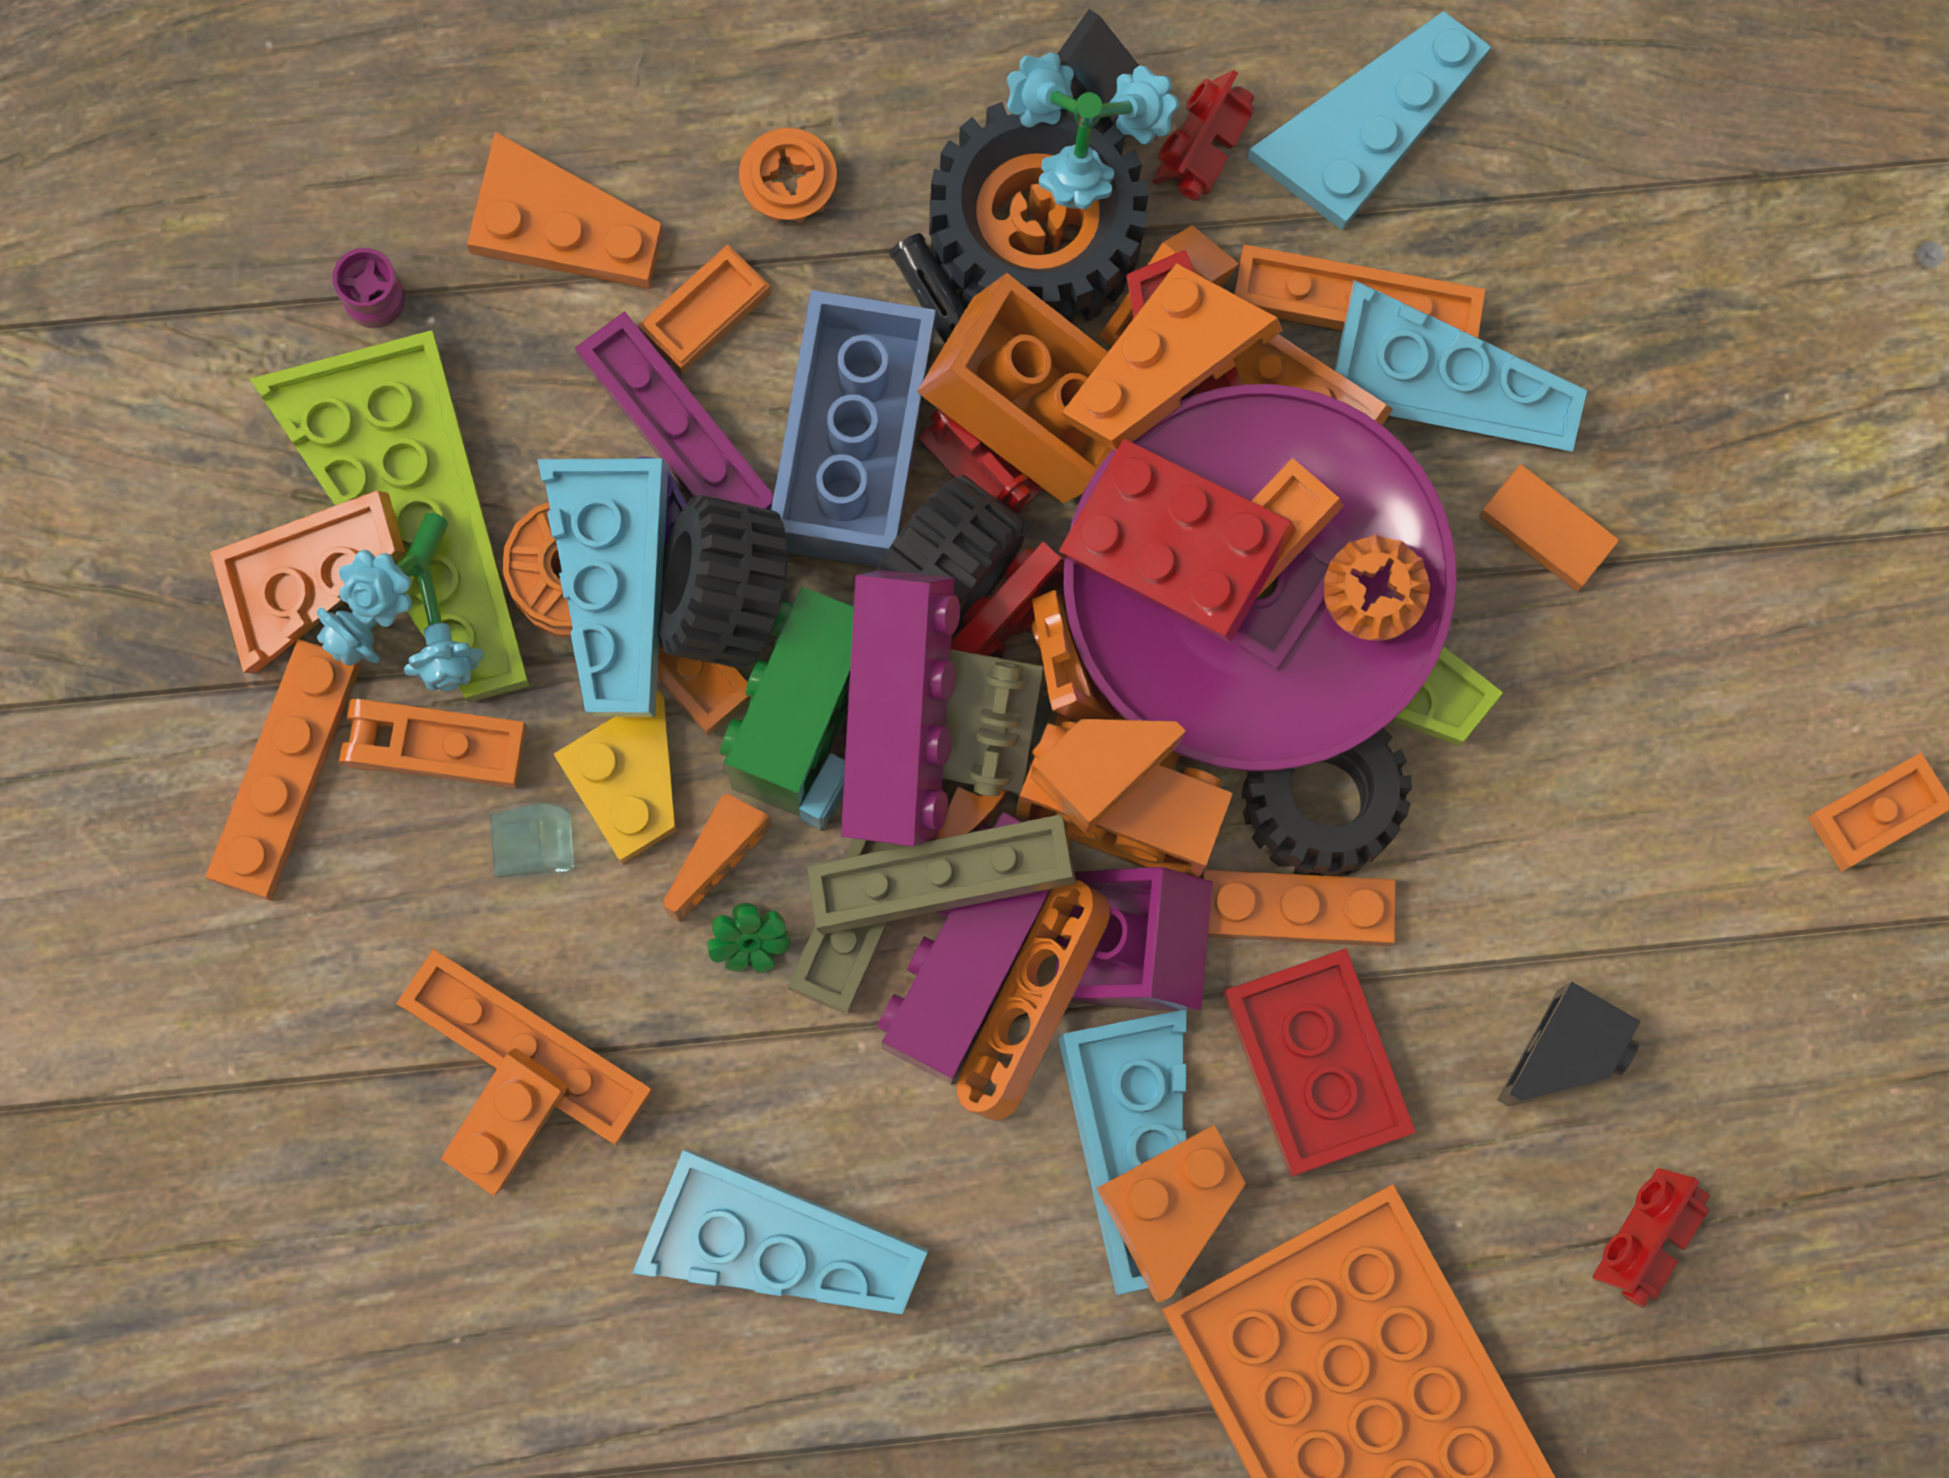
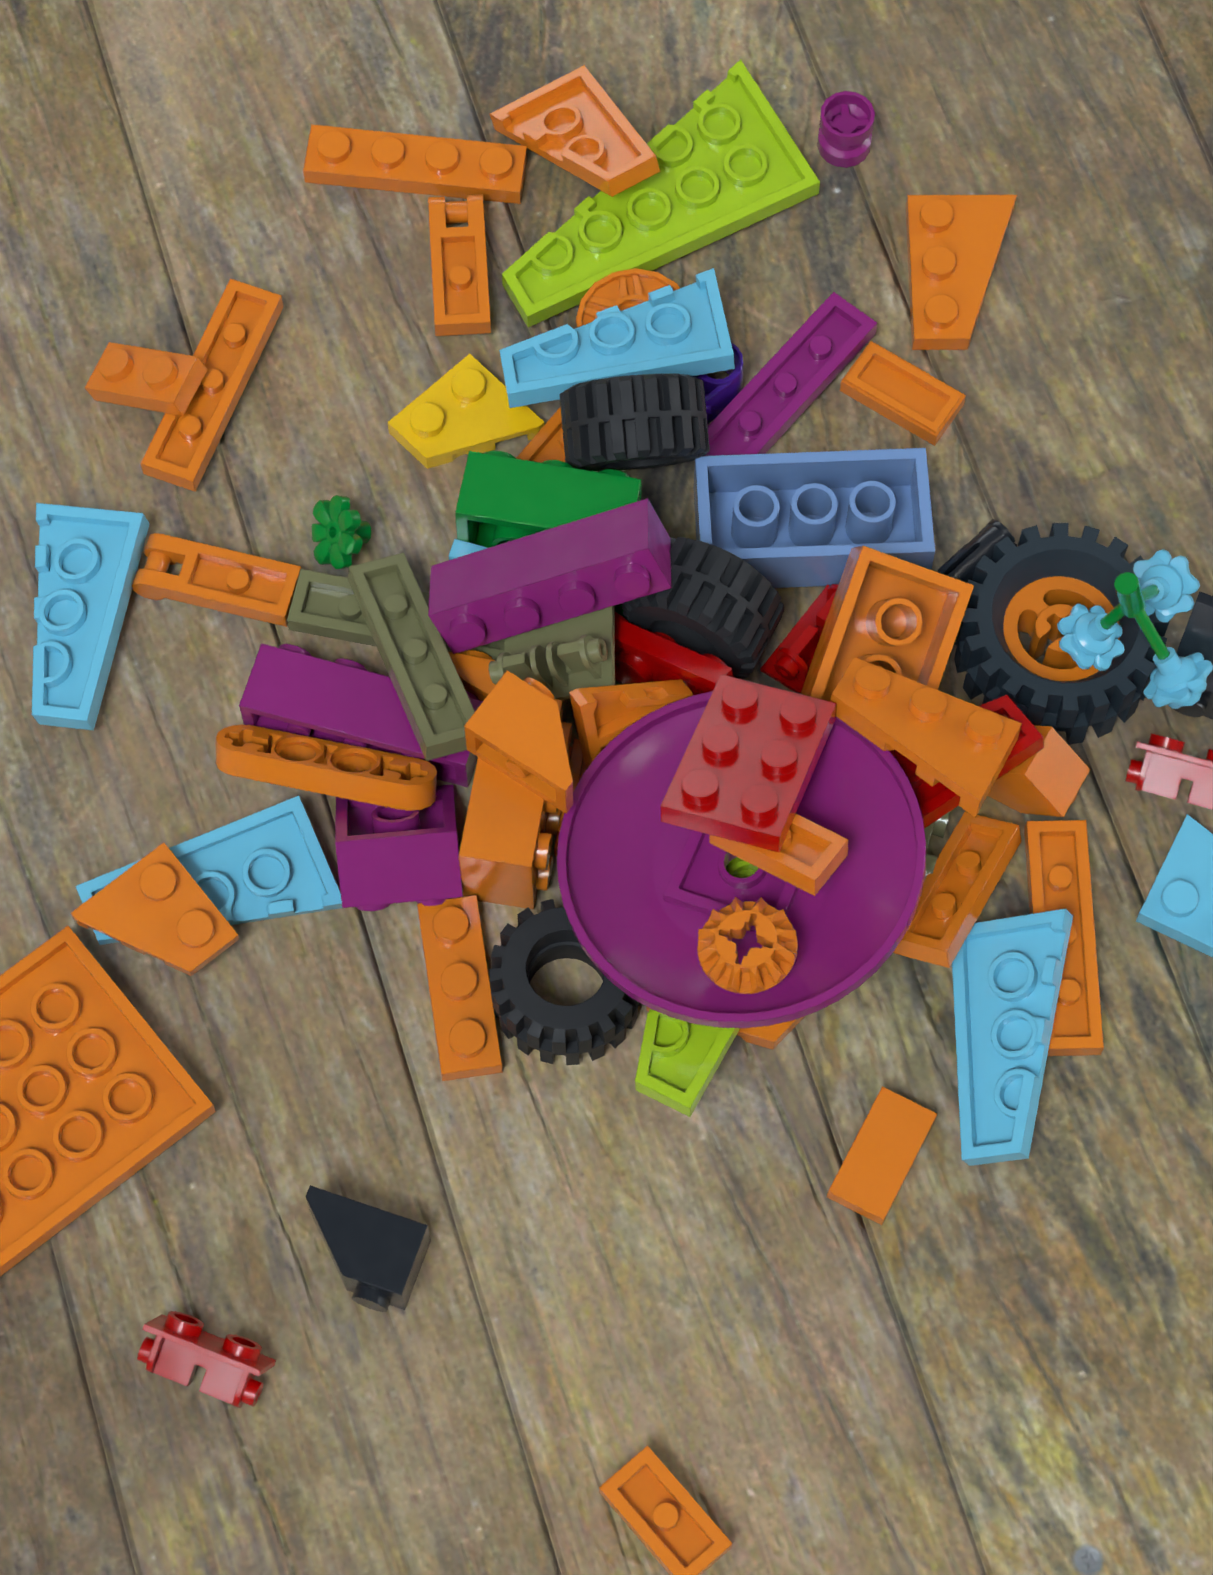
camera: 85 degrees right, 10 degrees down
(377, 594) = (547, 168): medium azure plant -> none
(531, 841) = (393, 358): clear light blue slope -> none
(722, 844) = (408, 491): orange slope -> none
(774, 1080) = (217, 579): none -> orange plate
(805, 155) = (1052, 411): orange gear -> none
(1318, 1062) = (316, 1025): red plate -> none

